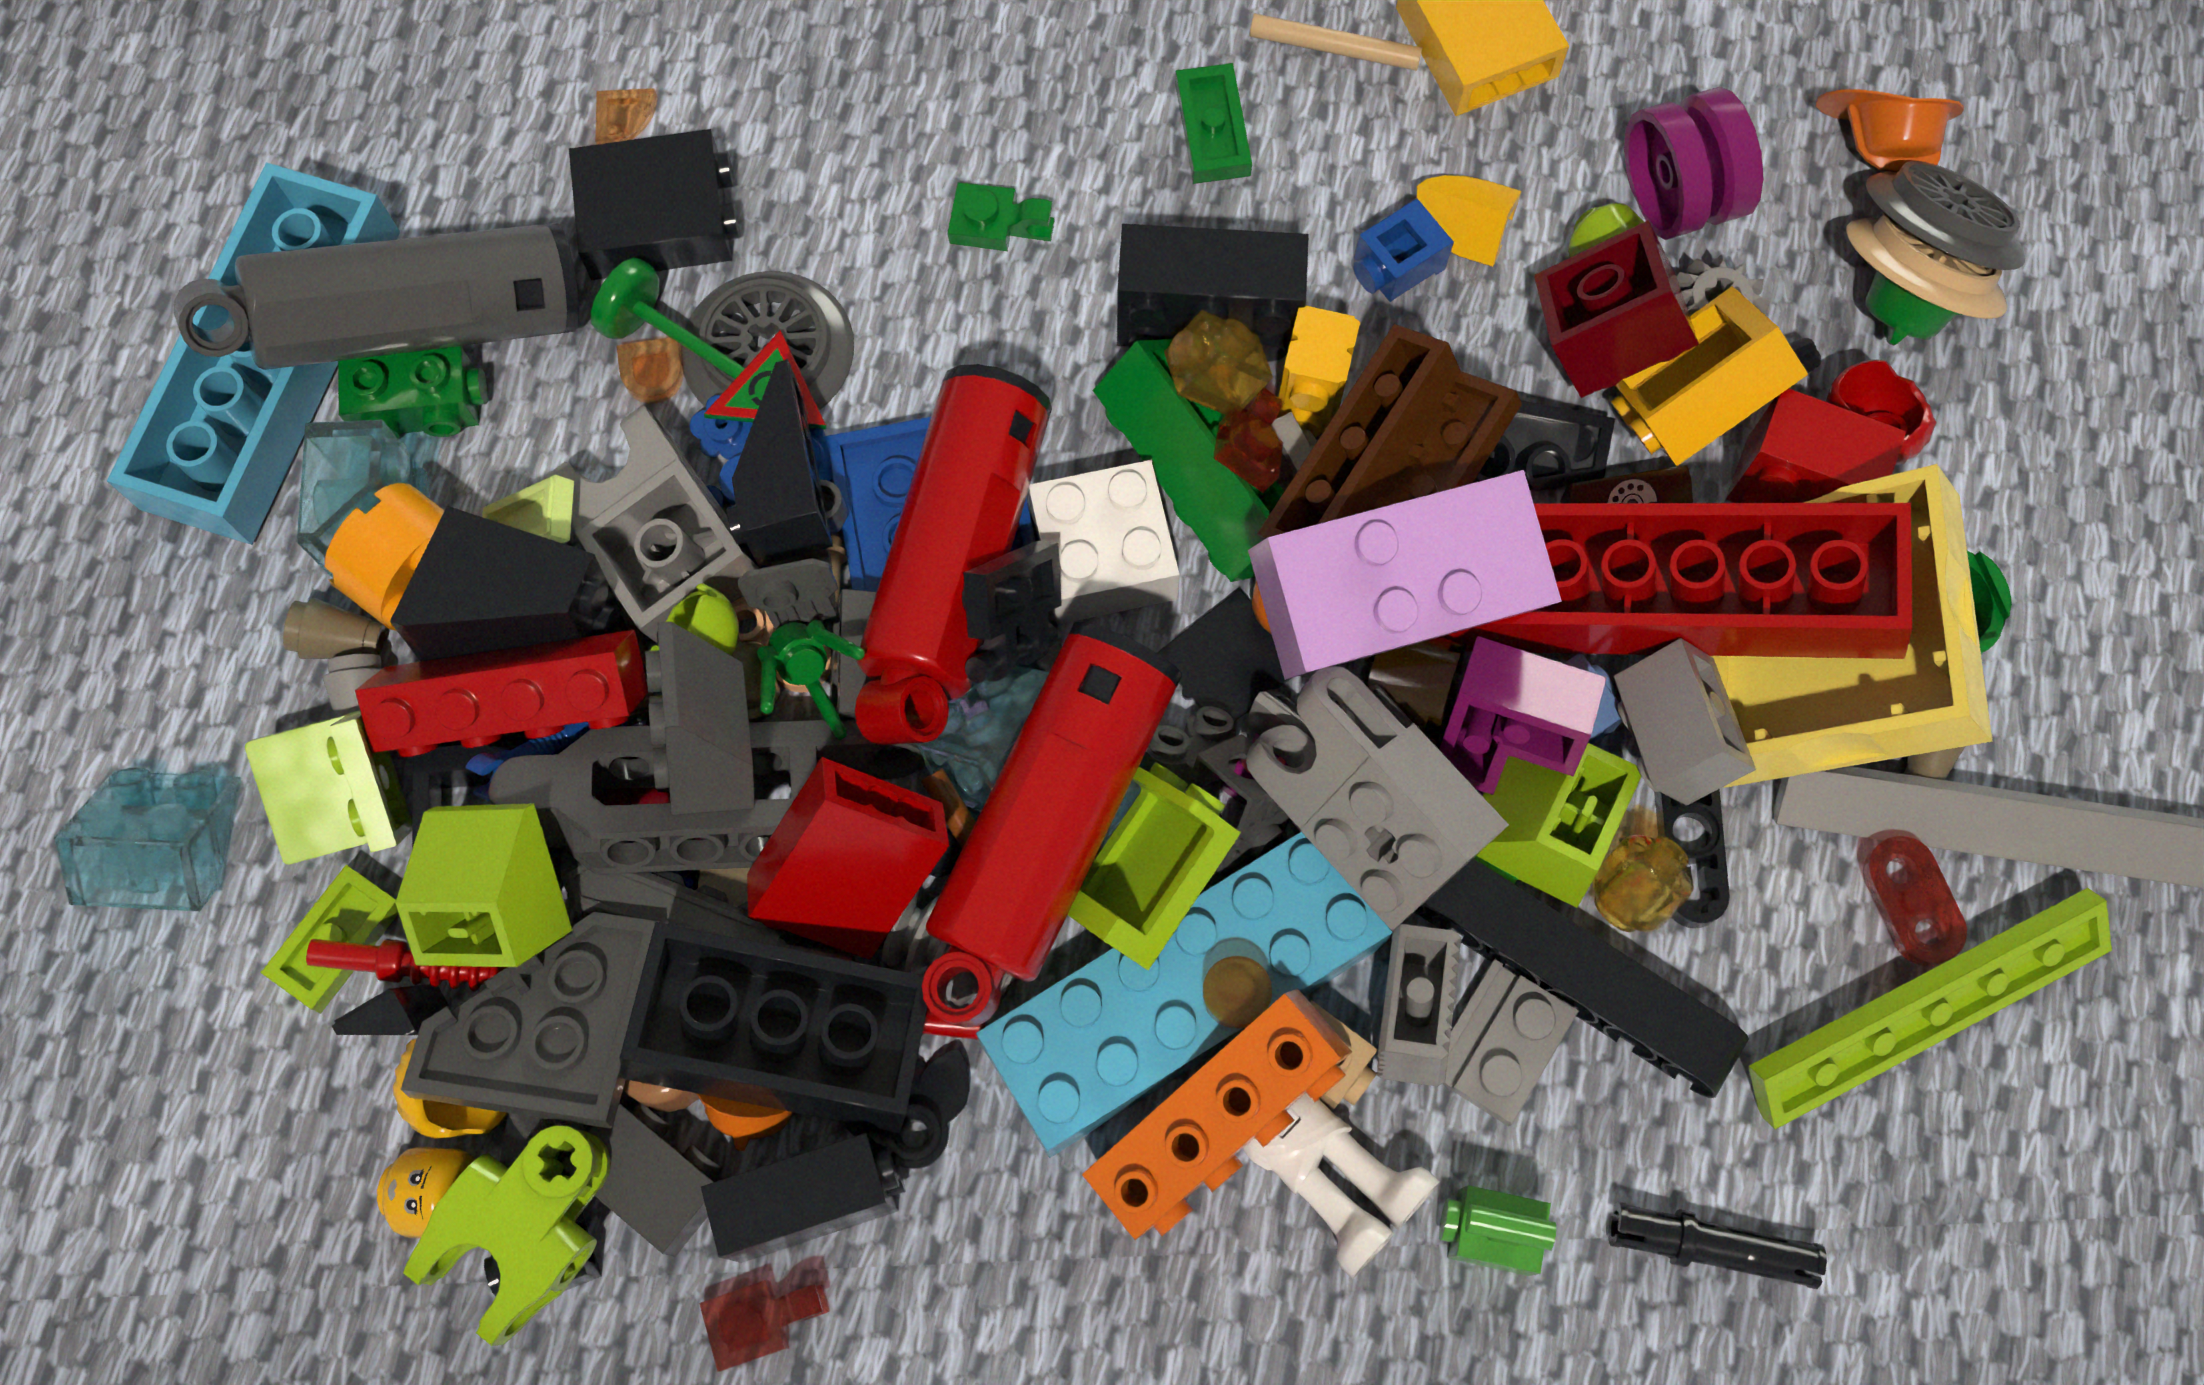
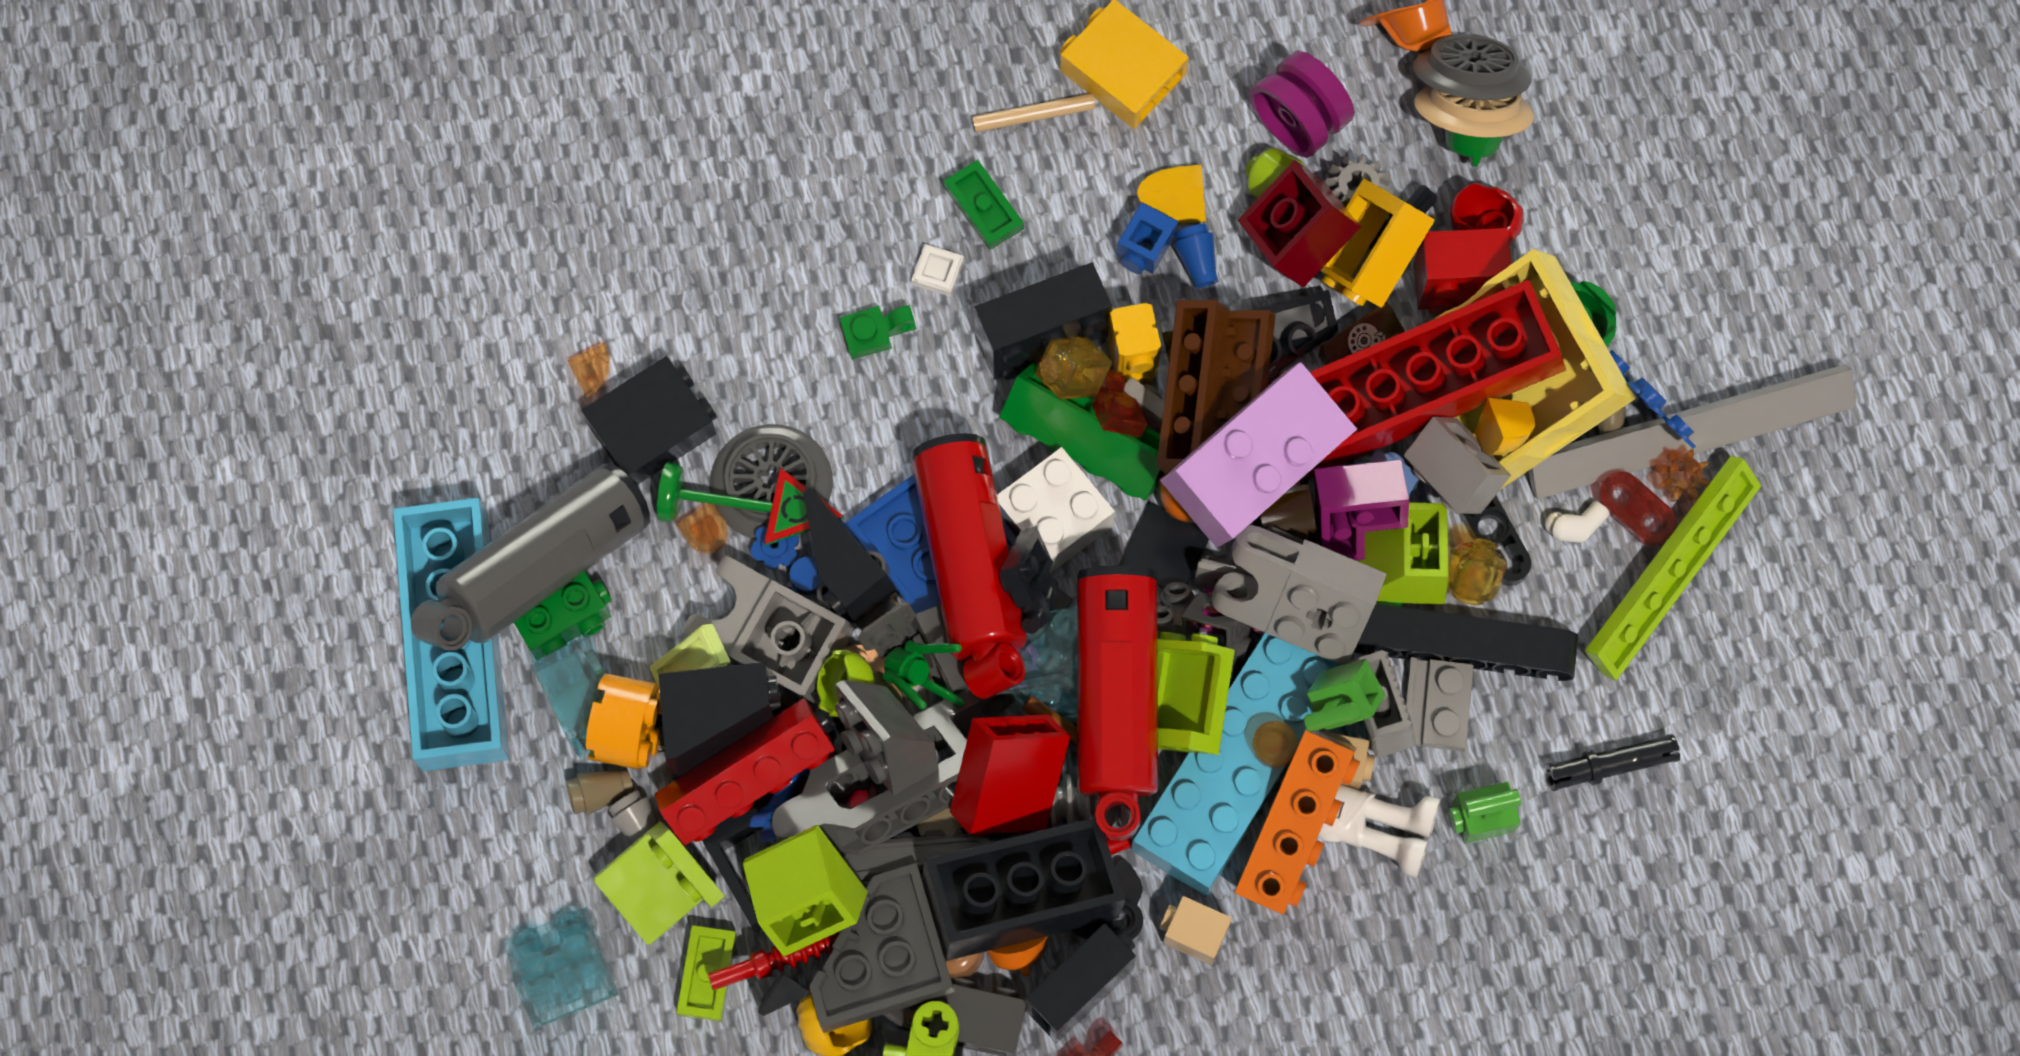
camera: 25 degrees left, 0 degrees up
(1003, 1198) = (1195, 929): none -> tan brick
(1114, 179) = (937, 270): none -> white tile
(1364, 971) = (1343, 696): none -> bright green brick
(1461, 298) = (1197, 253): none -> blue cone
(1778, 696) = (1504, 426): none -> yellow brick
(1813, 887) = (1574, 527): none -> white arm
(2012, 759) = (1654, 401): none -> blue plant
(2016, 869) = (1682, 464): none -> clear orange gear

